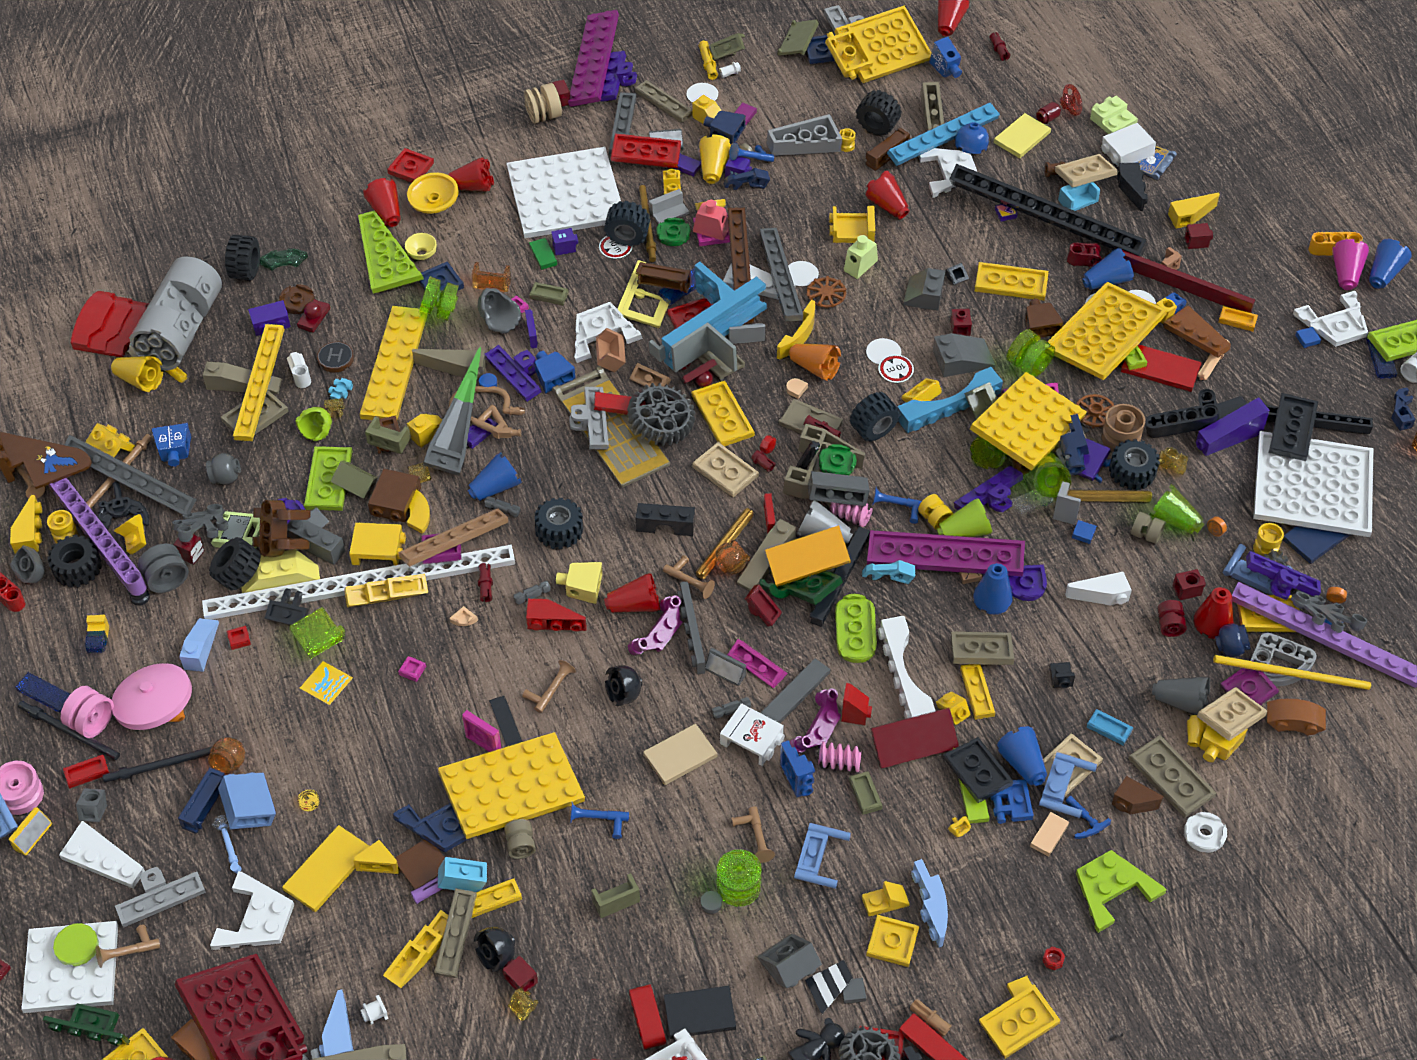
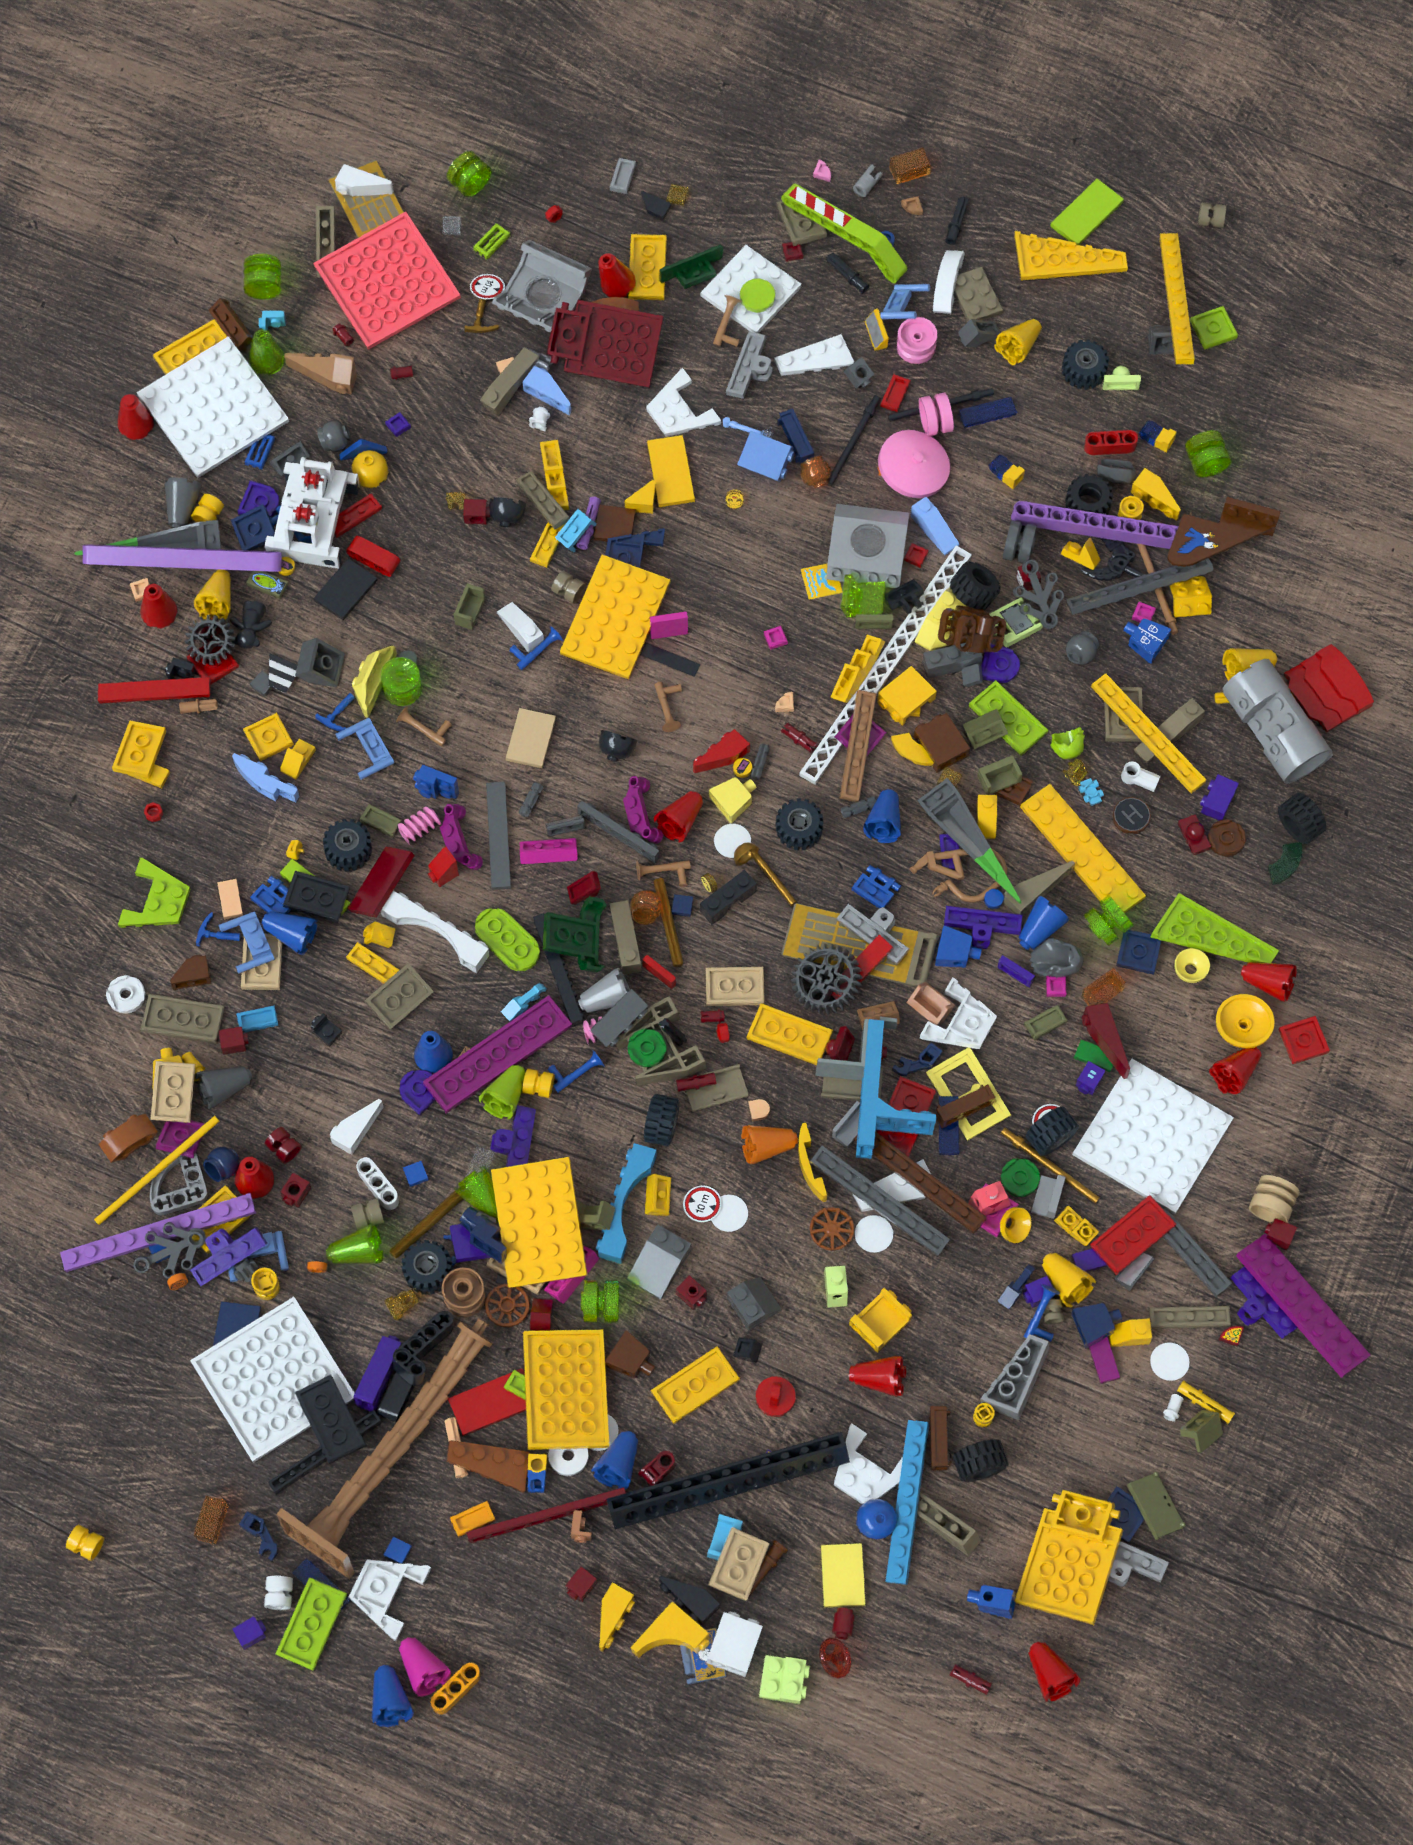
camera: 135 degrees right, 15 degrees up
(150, 465) = (1143, 611): none -> dark pink tile
(260, 664) = (867, 545): none -> light grey panel
(336, 616) = (873, 621): none -> olive tile
(477, 334) = (1041, 923): none -> blue cone
(523, 251) = (1104, 1032): none -> dark red slope
(551, 595) = (742, 767): none -> yellow tile
(561, 447) = (873, 891): none -> blue plate
(591, 844) = (521, 626): none -> white slope
(615, 561) = (729, 838): none -> white sticker
(618, 532) = (746, 852): none -> pearl gold piece
(650, 329) = (910, 1067): none -> dark blue piece
(651, 76) = (1232, 1335): none -> tile
(666, 541) = (709, 882): none -> clear yellow tile
(701, 546) = (682, 905): none -> dark blue tile
(753, 733) = (494, 788): white panel -> none
(757, 907) = (368, 683): none -> light yellow wedge
(807, 556) = (587, 947): light orange tile -> none
(811, 911) = (339, 708): none -> blue piece
(914, 788) = (347, 845): none -> black wheel
(965, 238) = (775, 1396): none -> red tile
(1066, 506) = (441, 1169): light grey panel -> none
(1077, 385) = (541, 1315): none -> dark red slope
(1120, 542) = (382, 1191): none -> white beam
(1145, 721) = (233, 1040): none -> dark red brick
(1162, 178) = (674, 1628): none -> yellow arch
(1369, 352) = (328, 1527): none -> medium nougat plant

